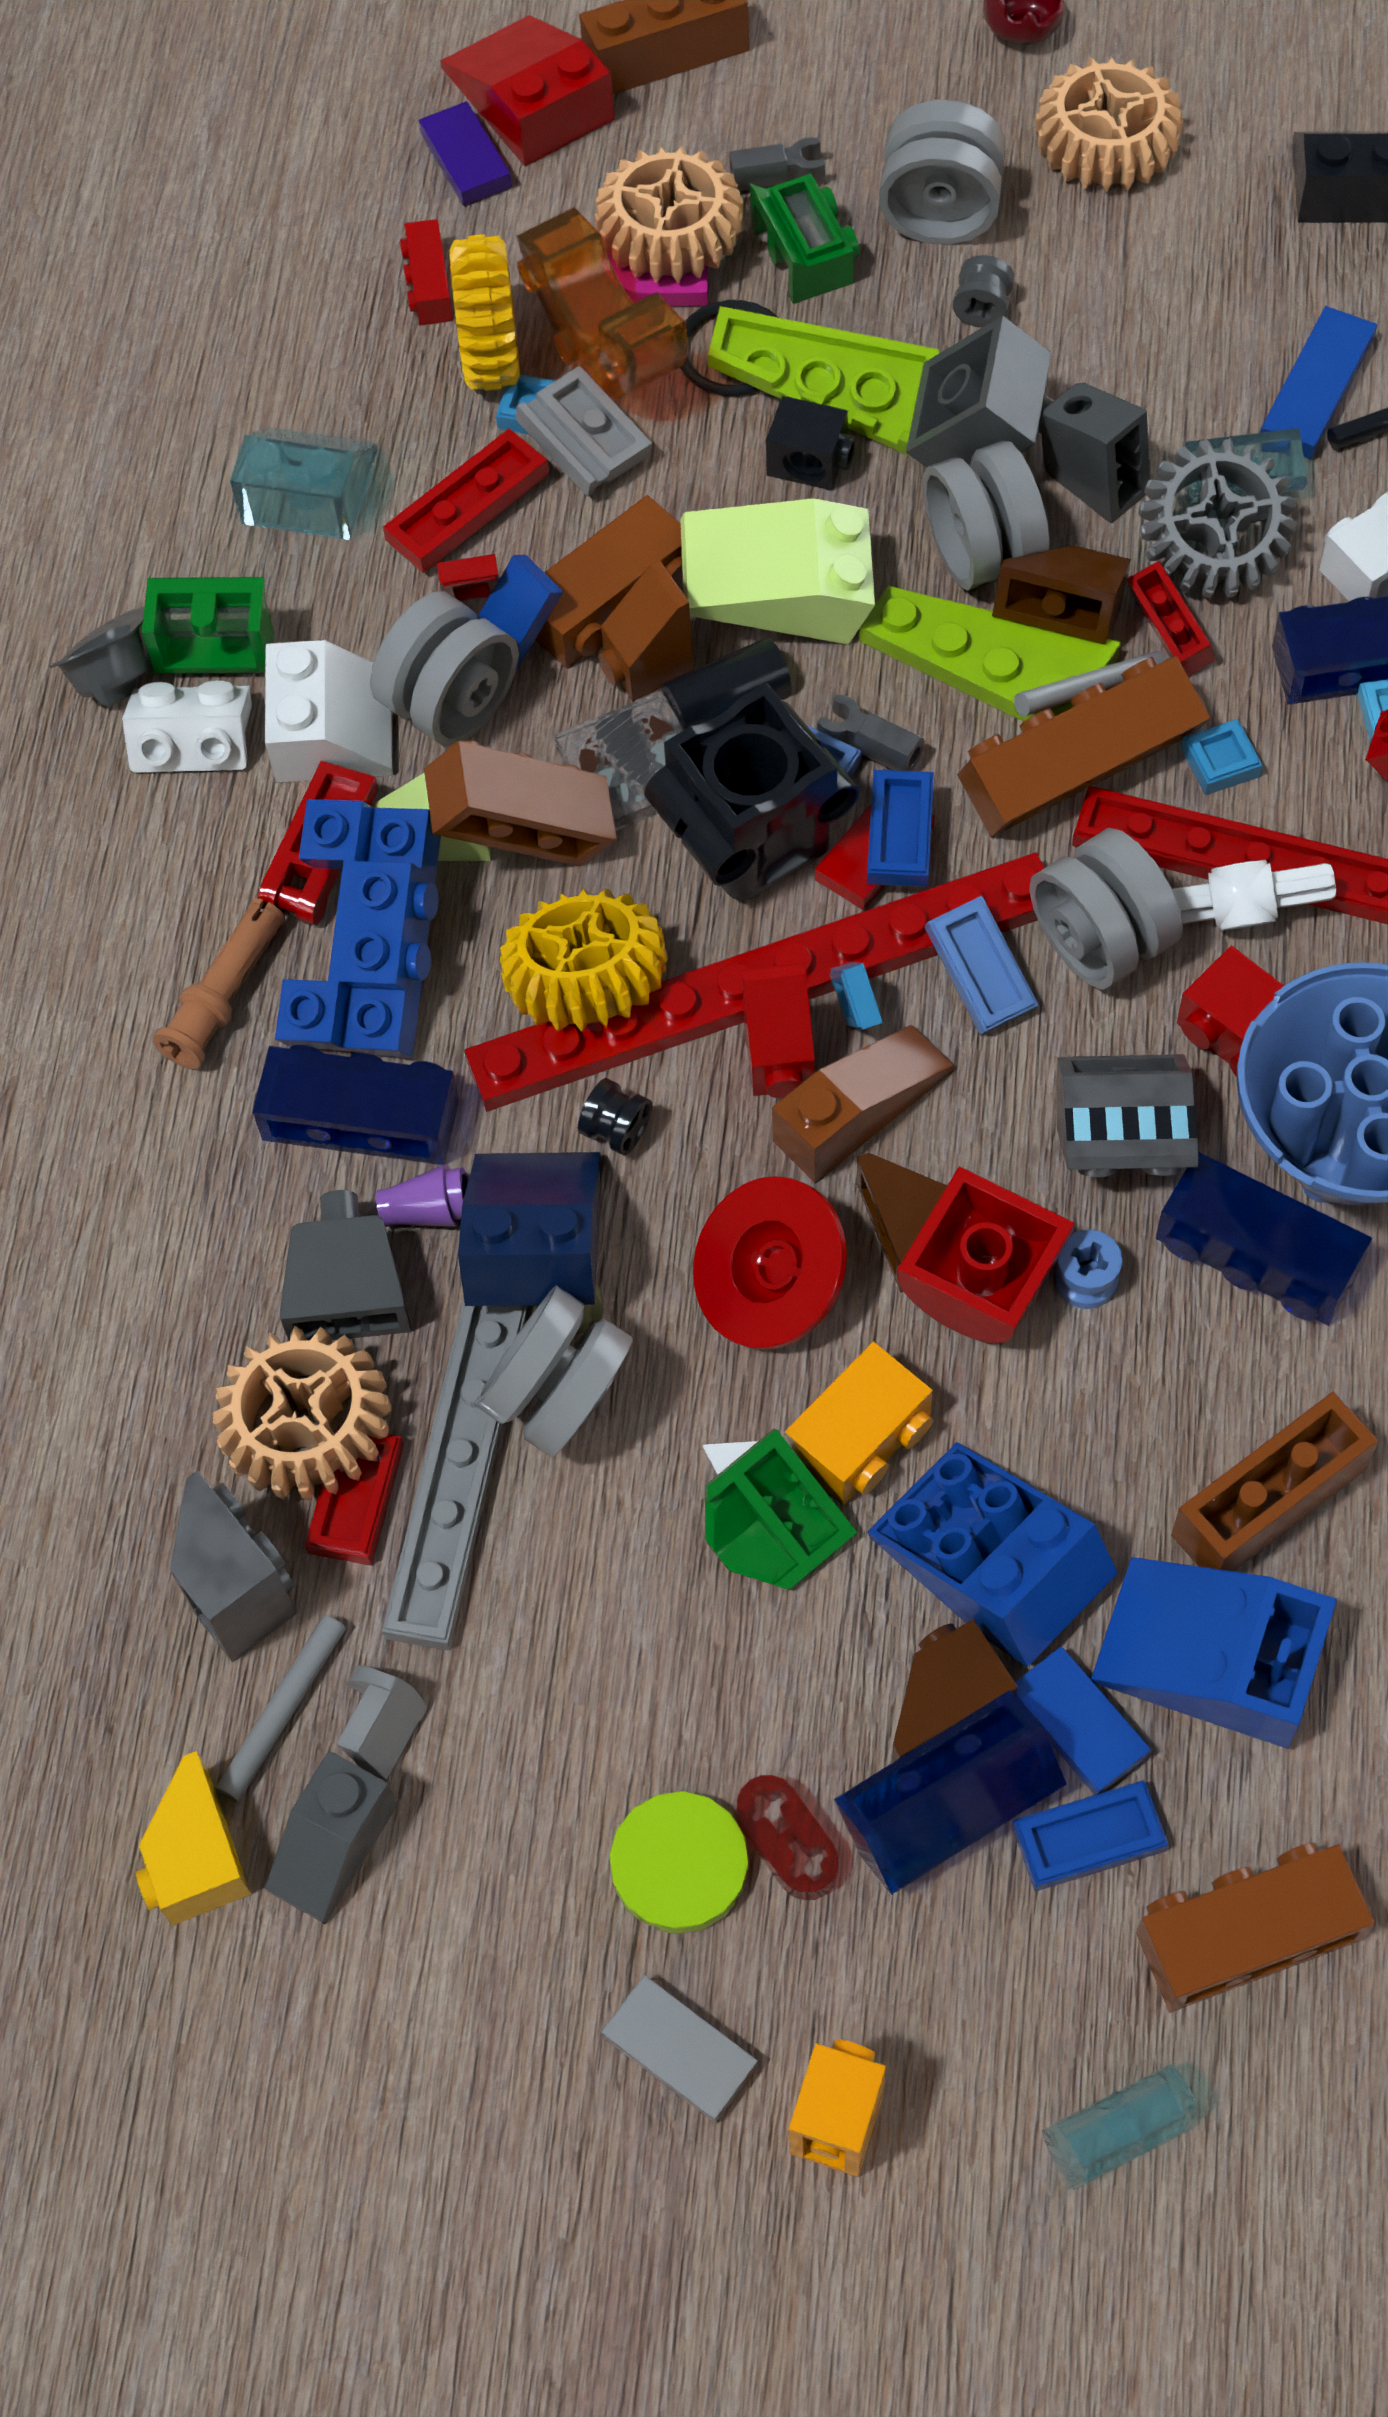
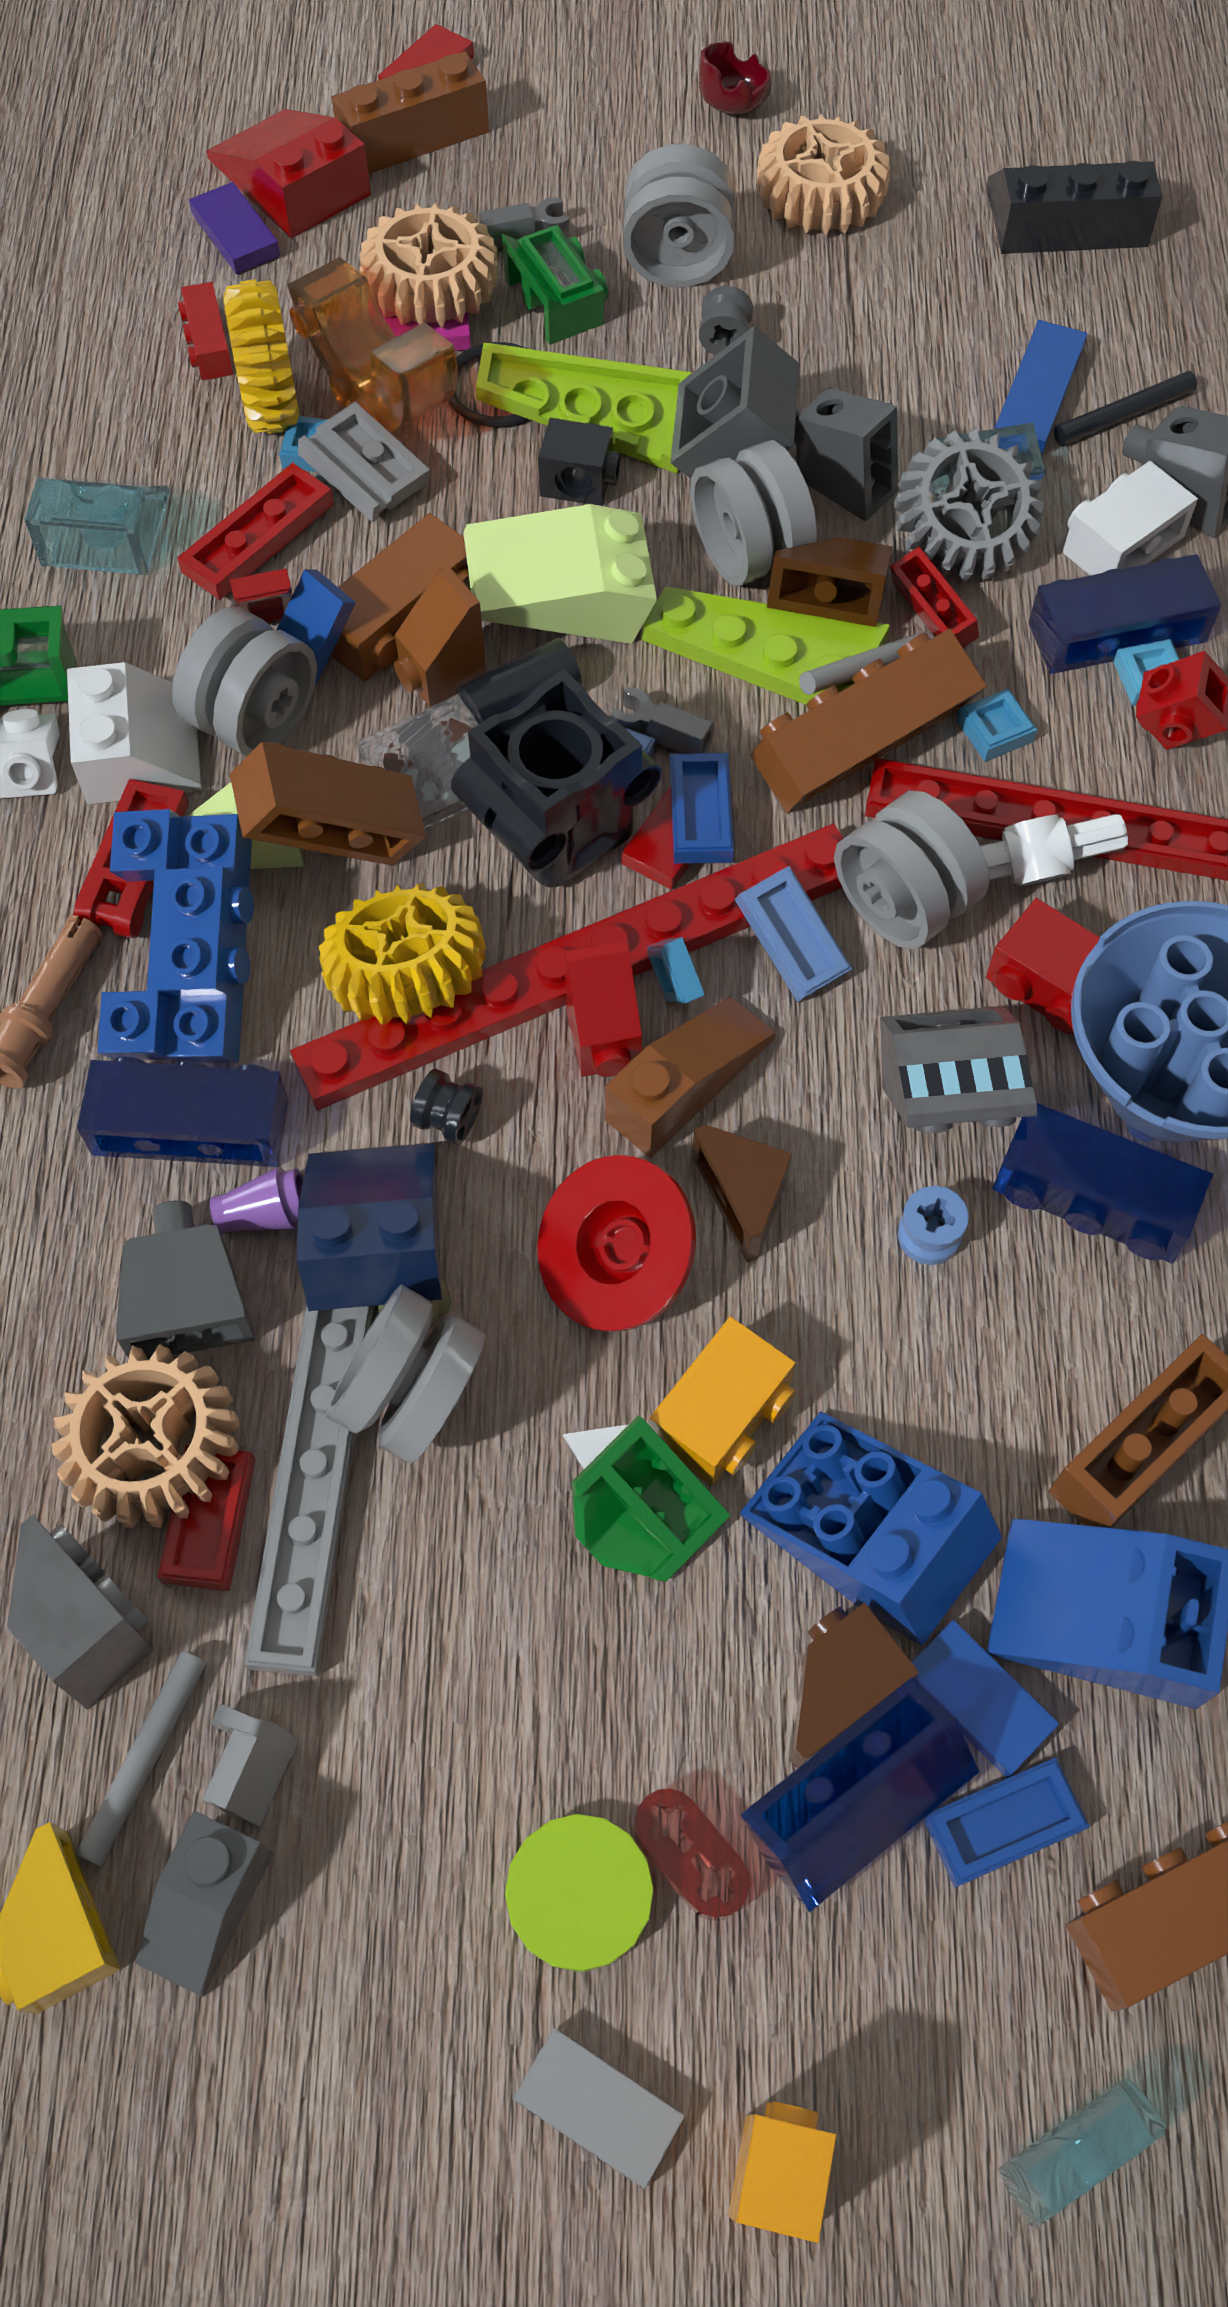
camera: 10 degrees left, 0 degrees up
(982, 1258) = (831, 1223): red brick -> none

